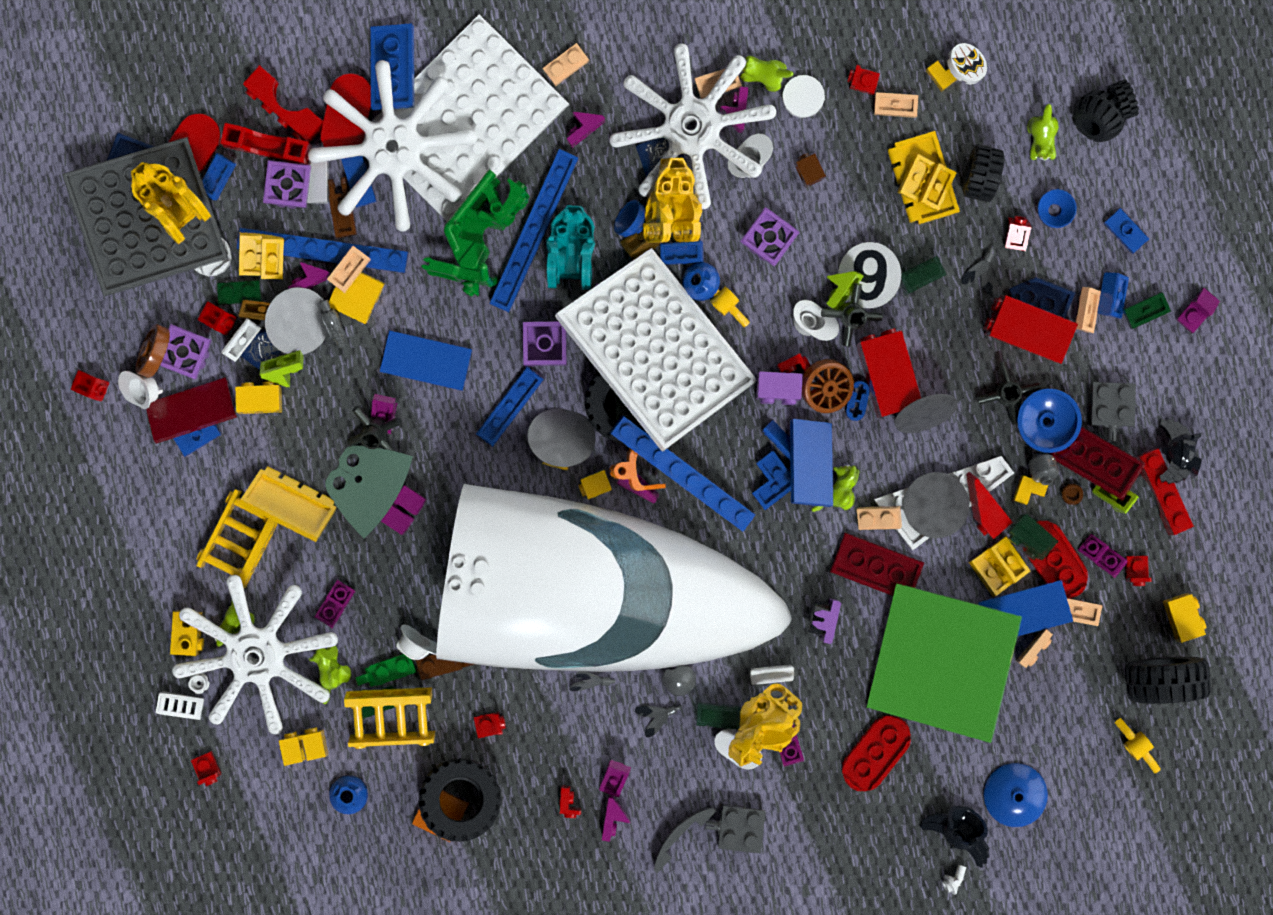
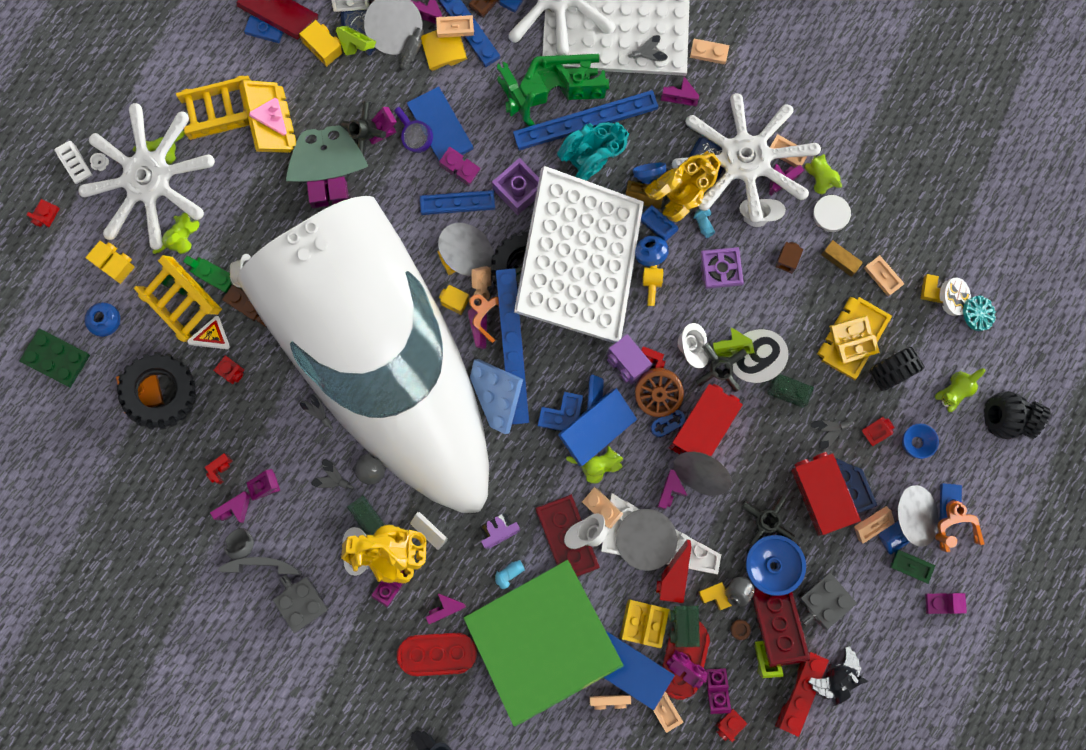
camera: 50 degrees right, 10 degrees down
(185, 638) = (121, 129): yellow brick -> none
(291, 501) = (270, 115): none -> bright pink piece
(335, 604) = (230, 202): magenta slope -> none
(348, 862) = (54, 358): none -> dark green plate
(417, 390) = (416, 134): none -> piece
(446, 715) = (210, 335): none -> piece
(474, 381) = (466, 169): none -> magenta piece
(518, 122) = (647, 51): none -> dark grey piece
(600, 449) = (481, 280): none -> light nougat plate
(647, 837) = (239, 544): none -> dark grey hair
(708, 520) = (497, 394): none -> medium blue plate
(718, 215) = (704, 224): none -> medium azure arm
(849, 124) = (842, 258): none -> pearl gold slope
(849, 710) = (450, 607): none -> magenta slope
(863, 80) = (879, 241): red bracket -> none
(863, 637) = (508, 573): none -> medium azure arm
(888, 549) = (587, 532): none -> white piece
(910, 445) = (671, 485): none -> magenta slope
(997, 56) = (979, 313): none -> teal wheel
(1075, 563) = (694, 675): none -> magenta hinge
(1113, 269) = (918, 515): none -> sticker
(1140, 239) = (956, 514): none -> orange piece

